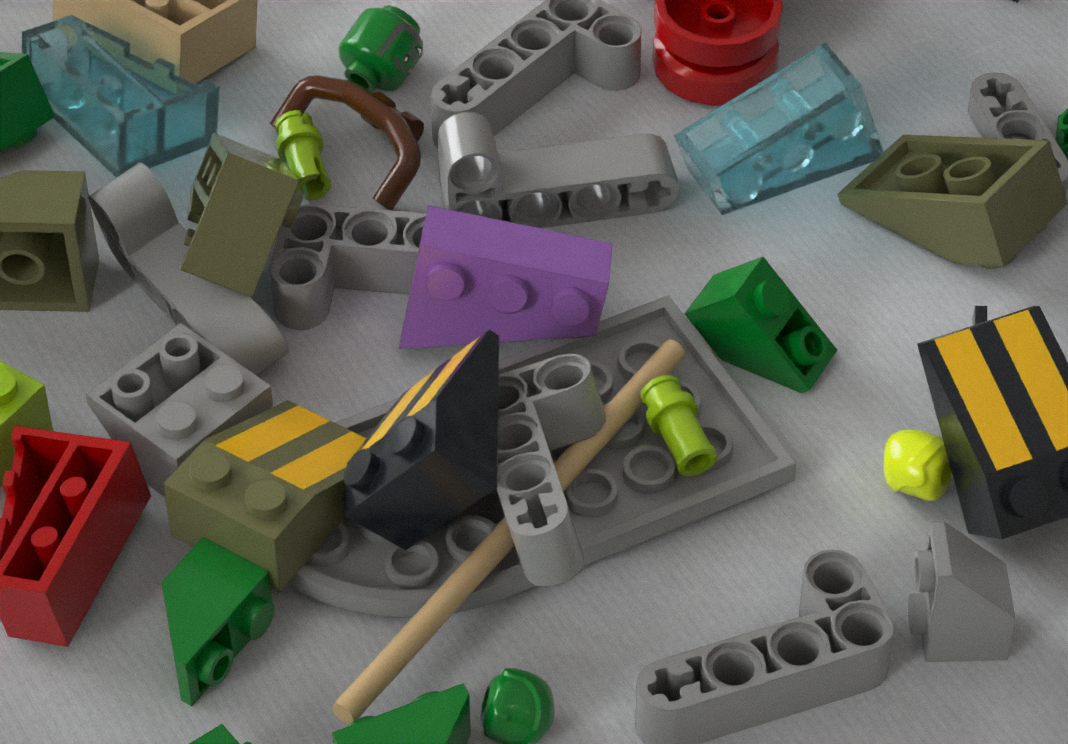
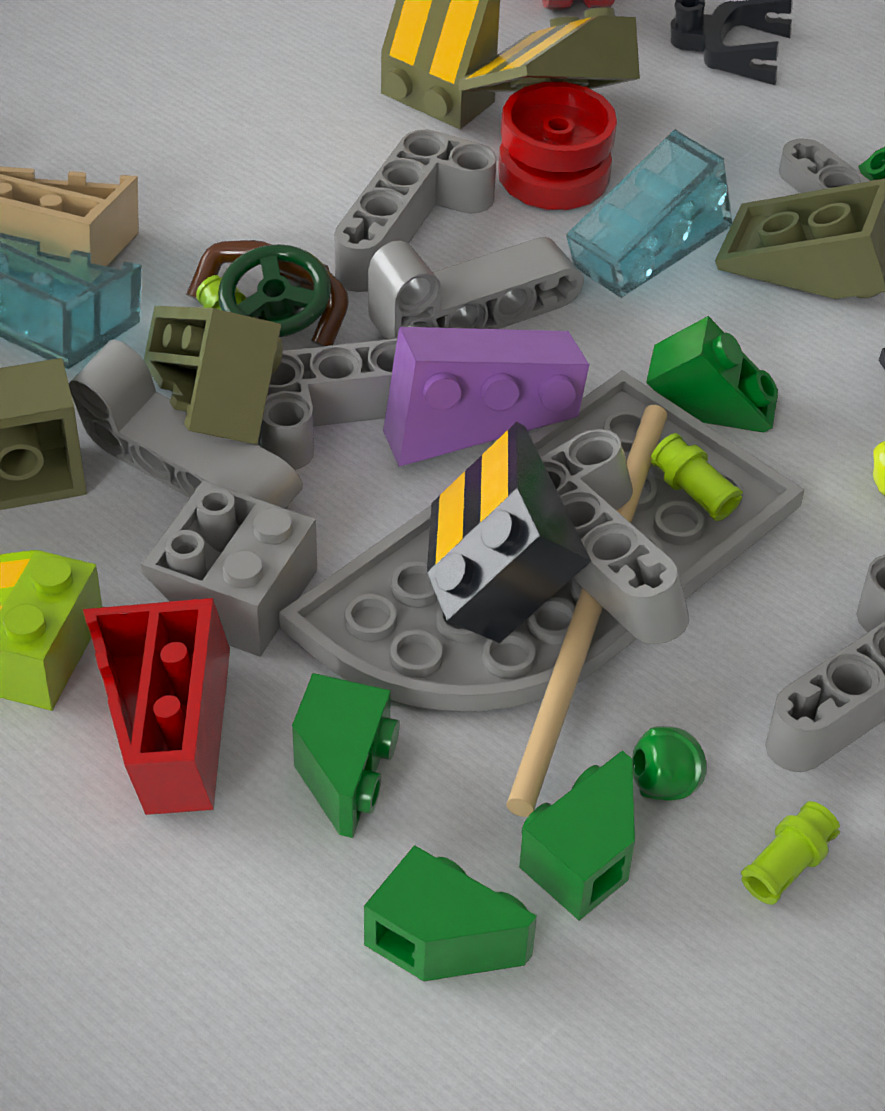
camera: 20 degrees left, 0 degrees up
(265, 488) = (354, 615): olive slope -> none
(348, 154) = (275, 296): none -> dark green piece
(381, 48) = (264, 208): green head -> none

